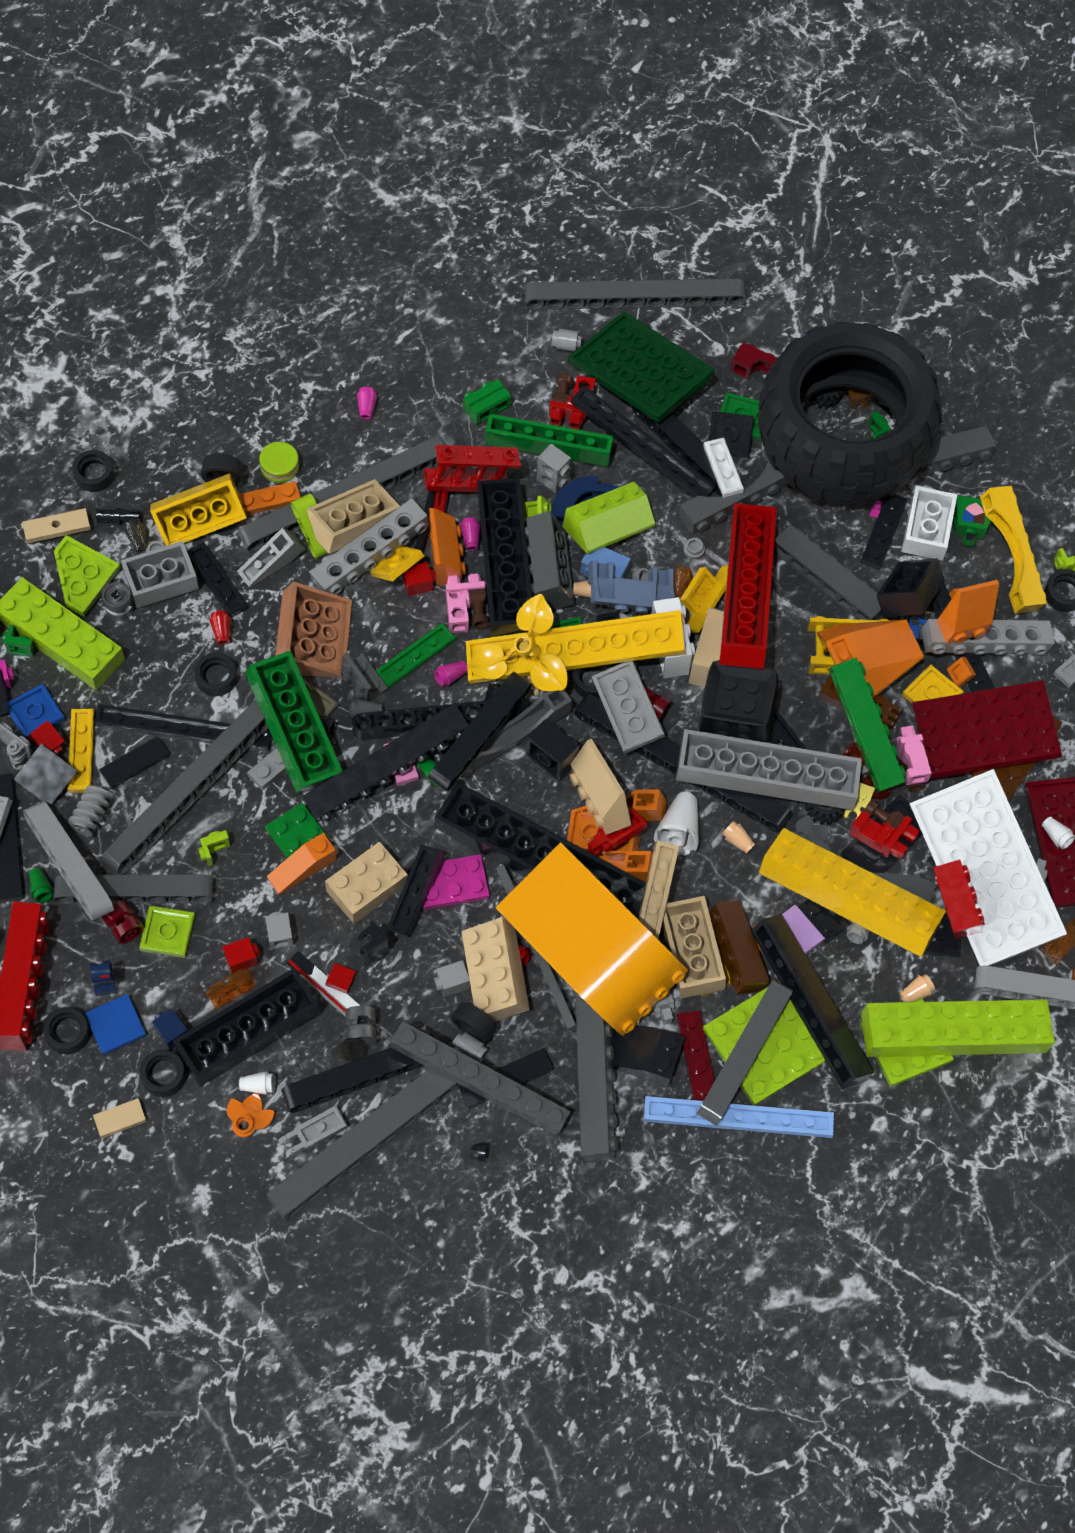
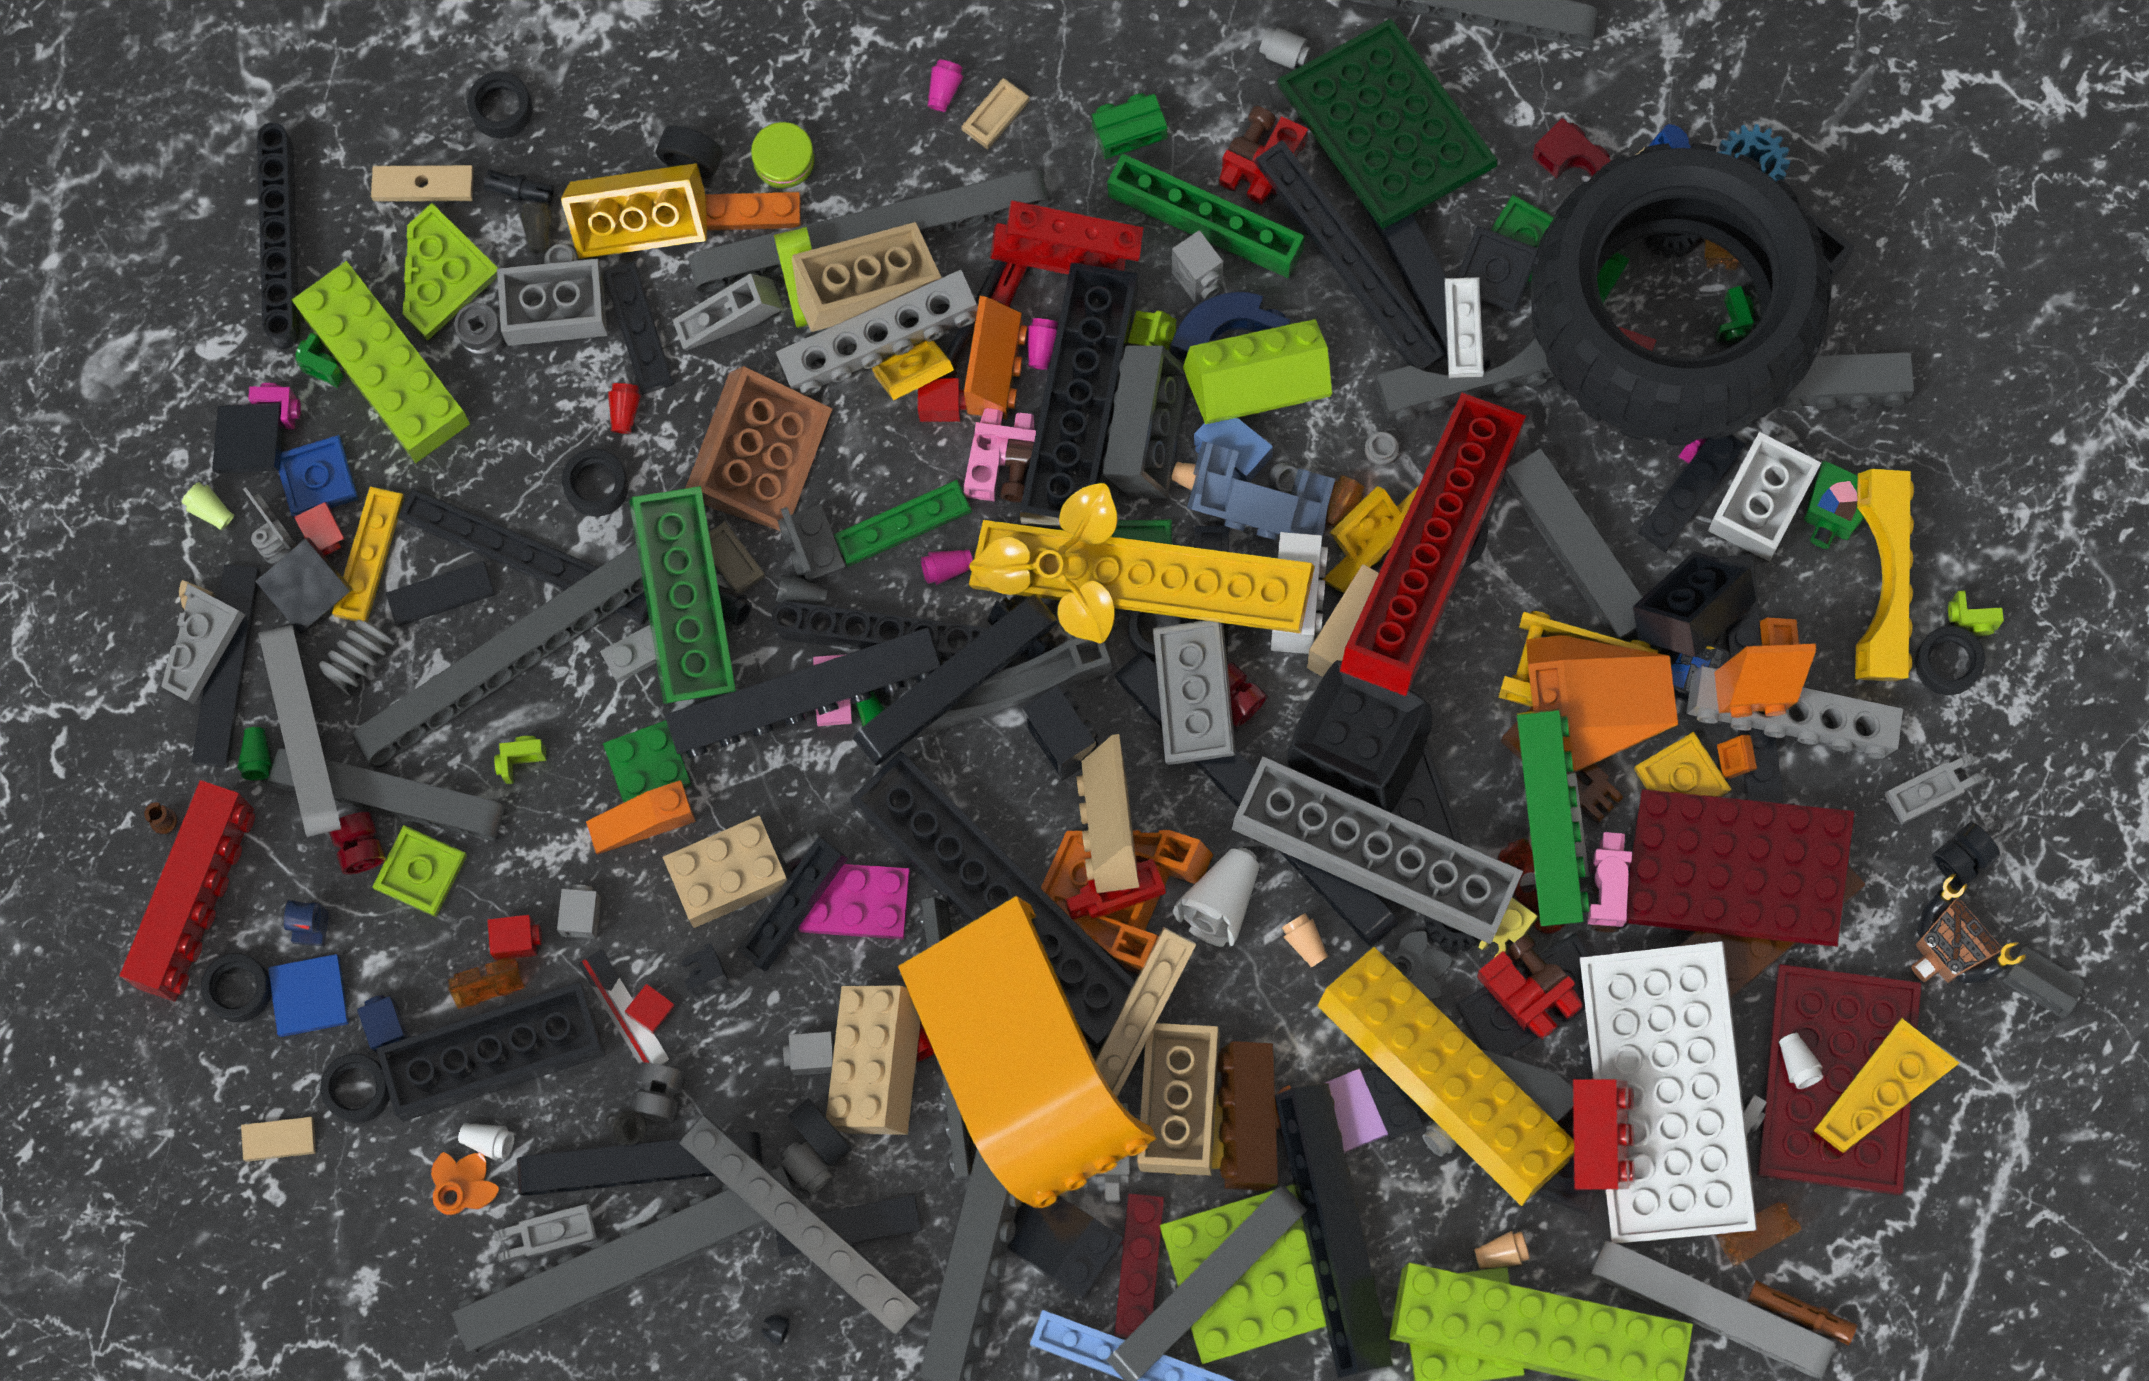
camera: 25 degrees right, 10 degrees up
(402, 413) = (995, 113): none -> tan tile

